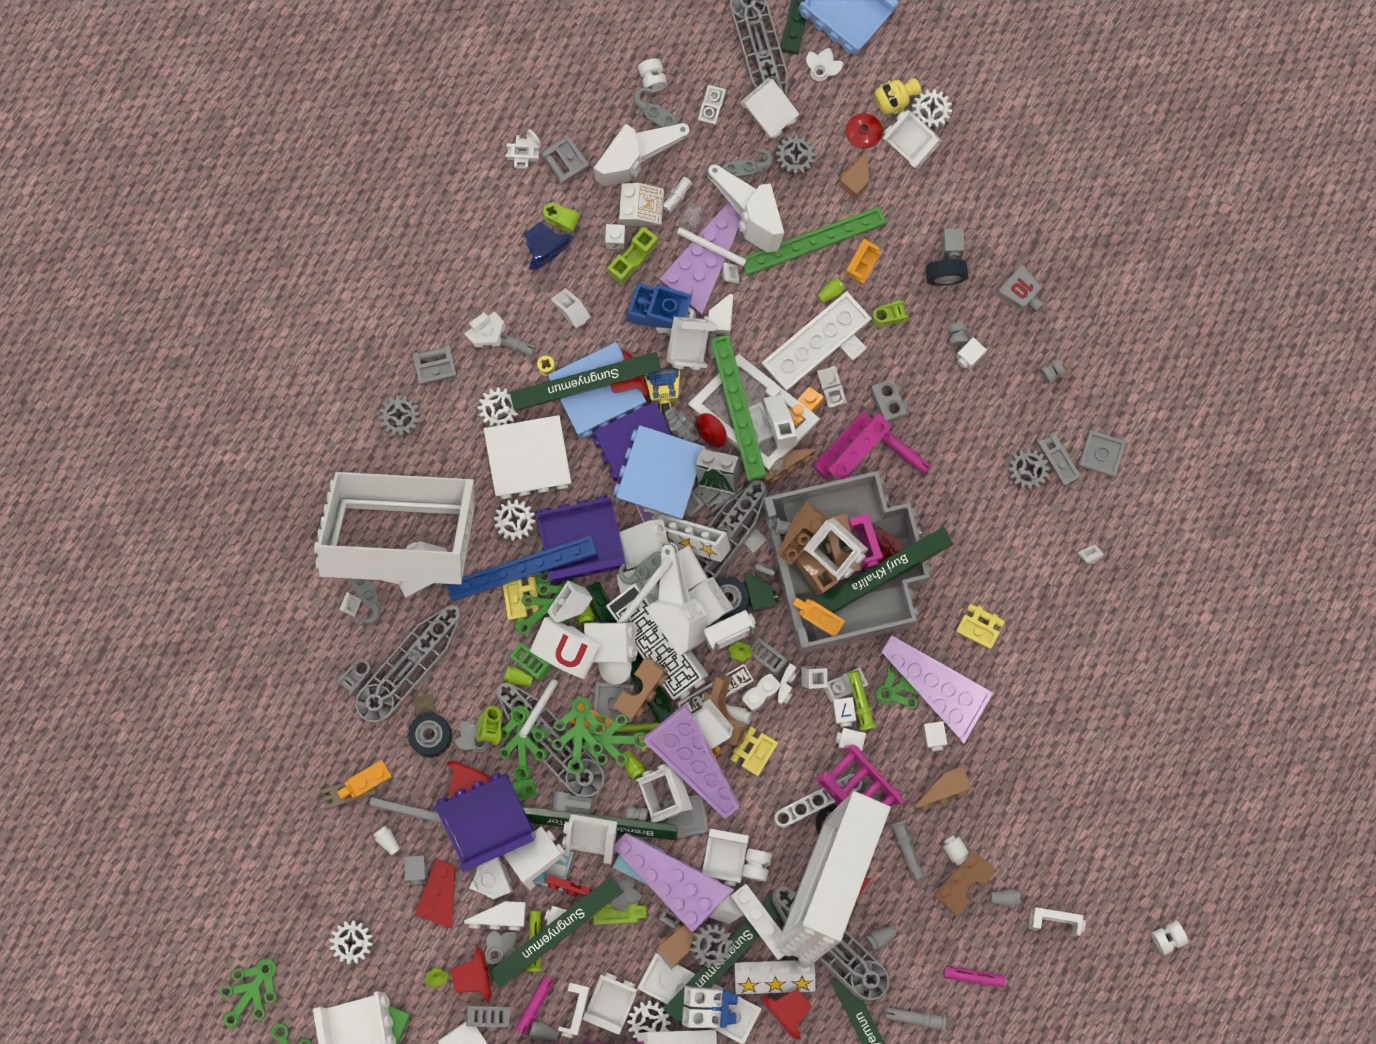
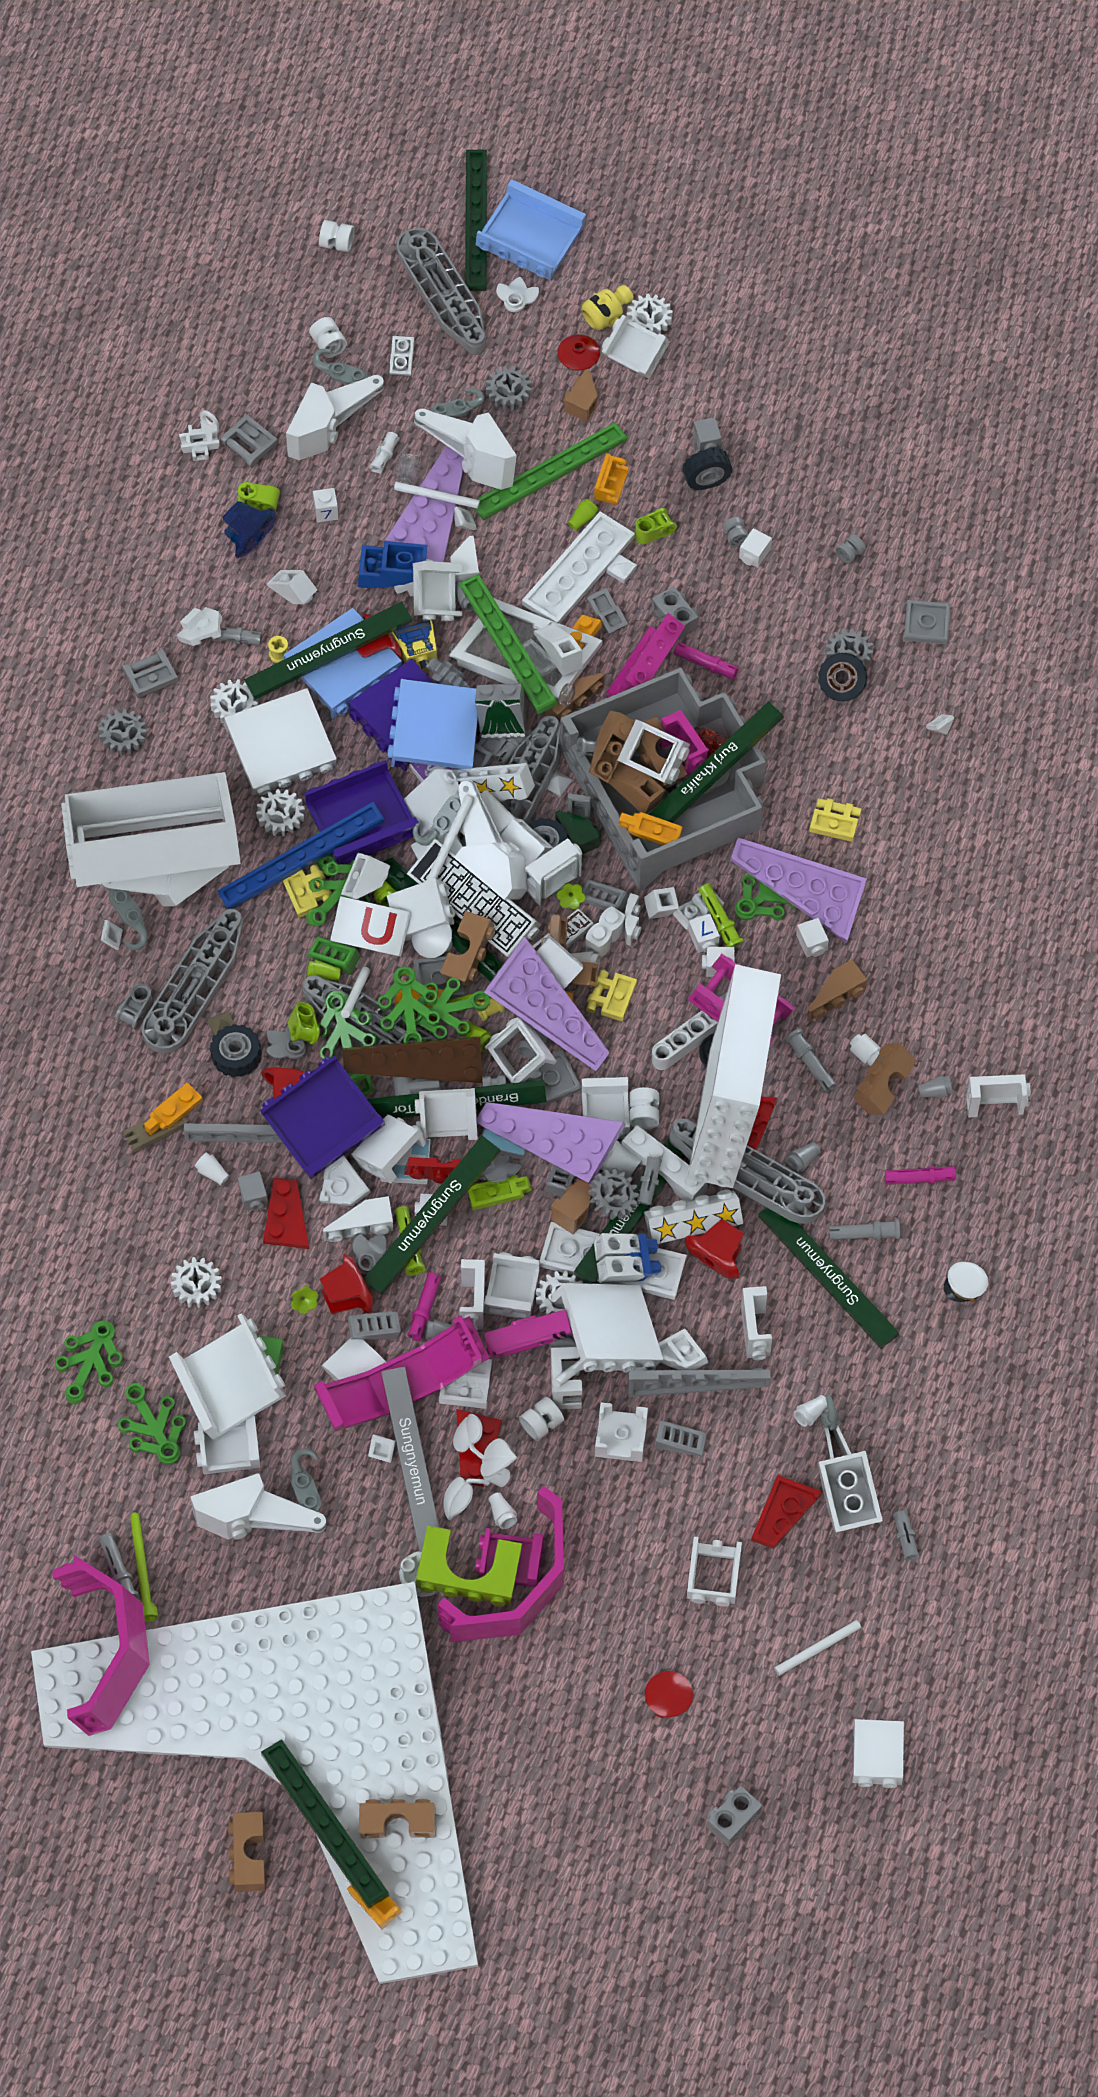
camera: 15 degrees left, 15 degrees down
(583, 785) = (434, 1060): none -> reddish brown wing
(628, 263) = (344, 531): lime arch -> none
(641, 205) = (347, 467): white slope -> none
(711, 430) = (481, 668): red dish -> none
(744, 939) = (653, 1166): none -> light grey pin
(770, 108) = (469, 343): white panel -> none
(1017, 507) = (828, 677): none -> black wheel
(1021, 291) = (795, 475): light grey torso -> none
(1058, 459) = (880, 635): light grey plate -> none

